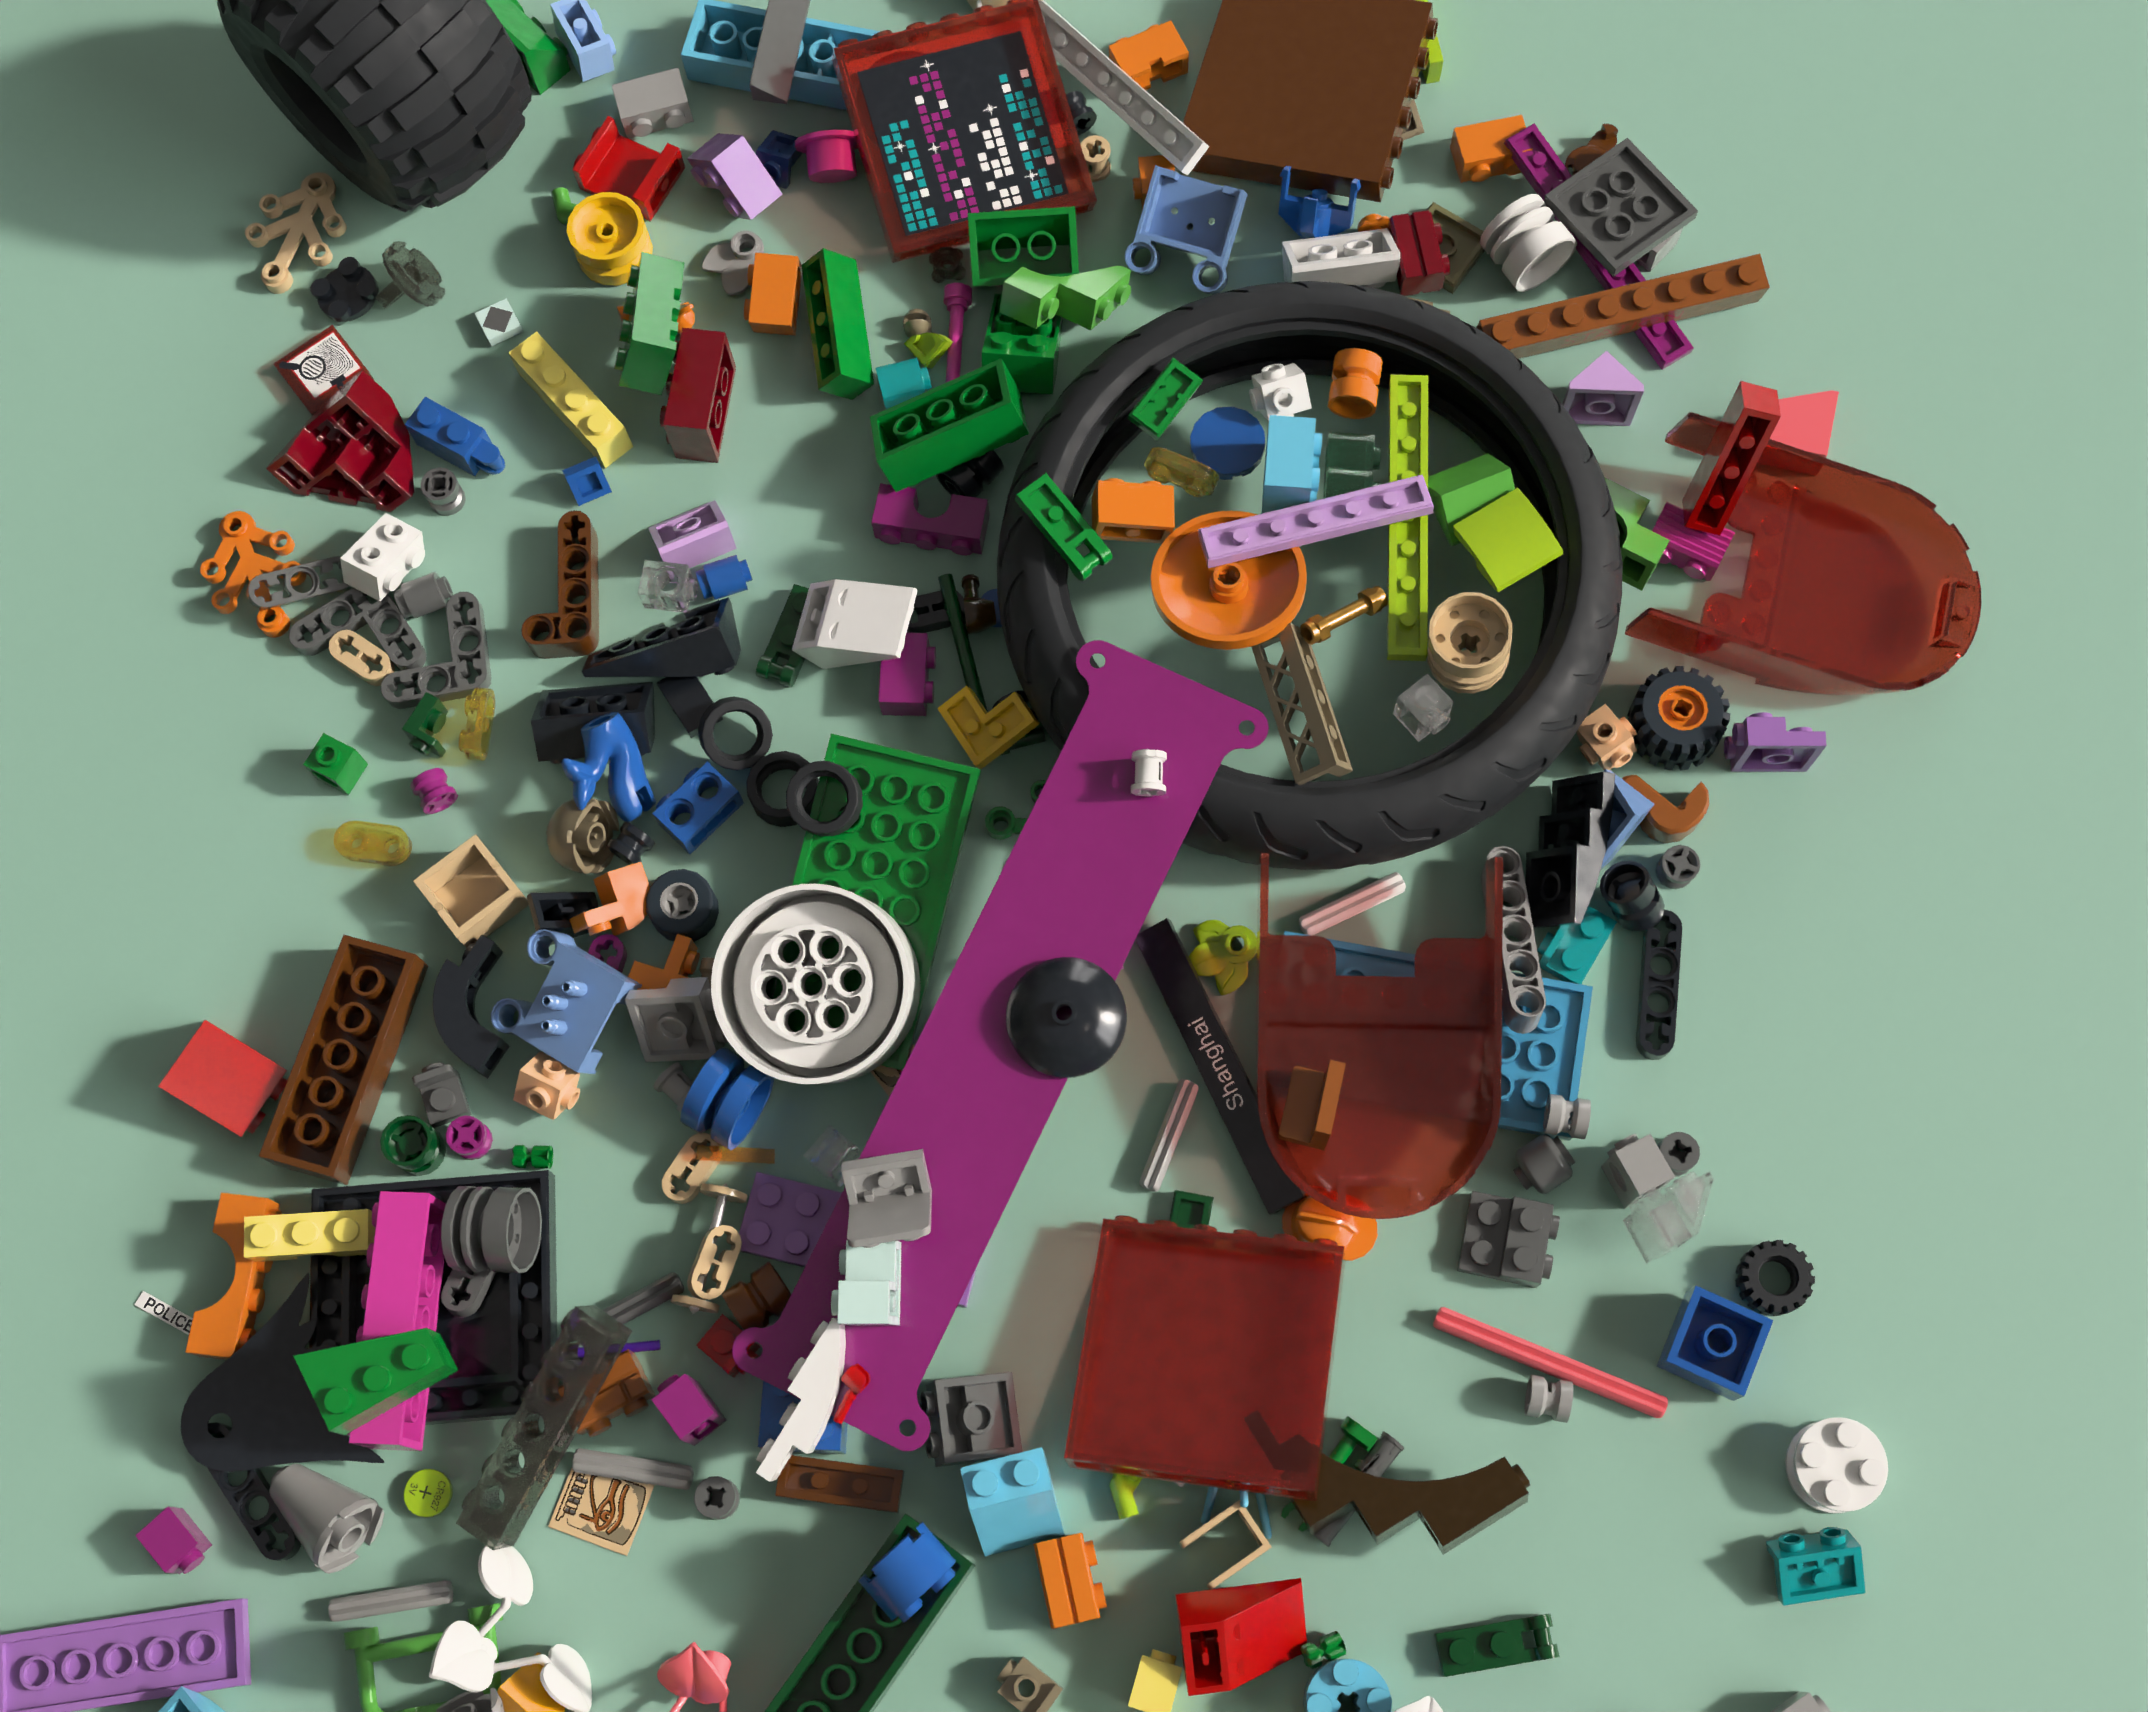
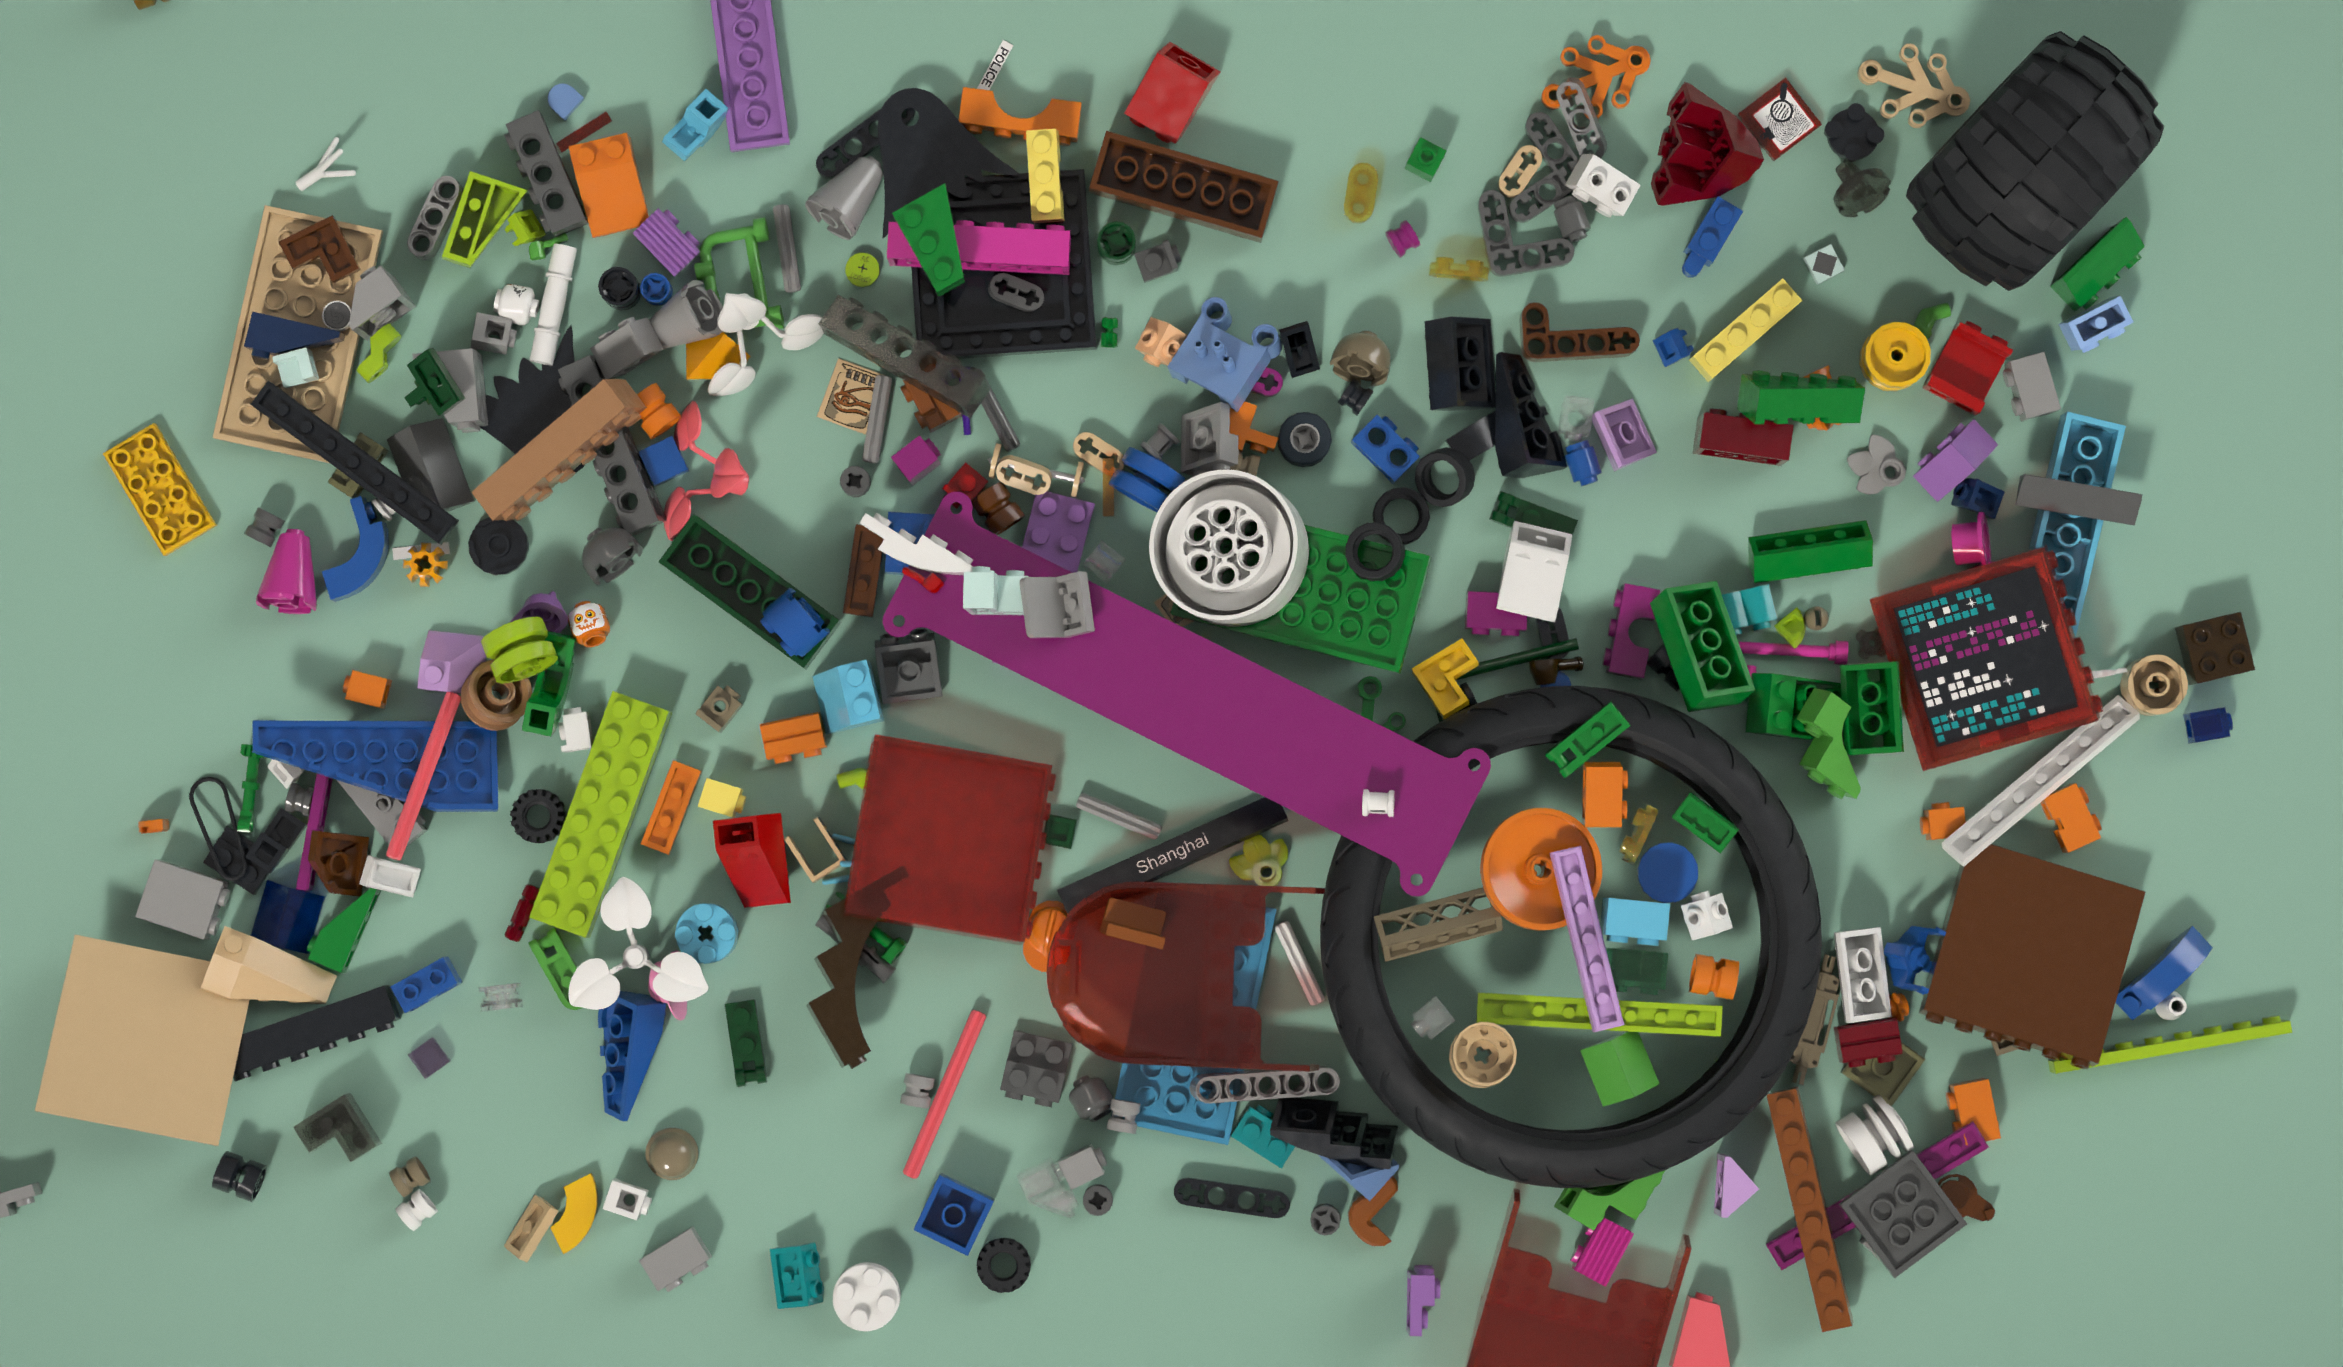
camera: 80 degrees right, 15 degrees up
(174, 1541) = (829, 90): magenta brick -> none
(423, 723) = (1463, 229): dark green bracket -> none
(443, 491) = (1659, 232): flat silver wheel -> none
(455, 1008) = (1221, 267): black arch -> none
(462, 1132) = (1126, 280): magenta wheel -> none
(471, 891) = (1315, 276): tan piece -> none
(491, 1229) = (1046, 311): dark grey wheel -> none
(622, 900) = (1307, 394): brick -> none
(628, 785) = (1428, 381): blue piece -> none
(773, 294) = (1840, 497): orange brick -> none
(1071, 1045) = (1209, 754): black dish -> none
(1083, 116) = (2016, 755): black wheel -> none
(1100, 164) = (1979, 767): tan bush -> none
(1197, 206) = (1899, 848): medium blue piece -> none
(1318, 628) = (1499, 938): pearl gold bar -> none
(1330, 1647) = (746, 923): green piece -> none
(1508, 539) = (1576, 1092): lime slope -> none
(1606, 739) = (1438, 1167): light nougat brick -> none
(1632, 895) = (1297, 1179): black wheel -> none
(1678, 718) = (1447, 1228): black wheel -> none
(1731, 458) = (1650, 1278): red brick -> none

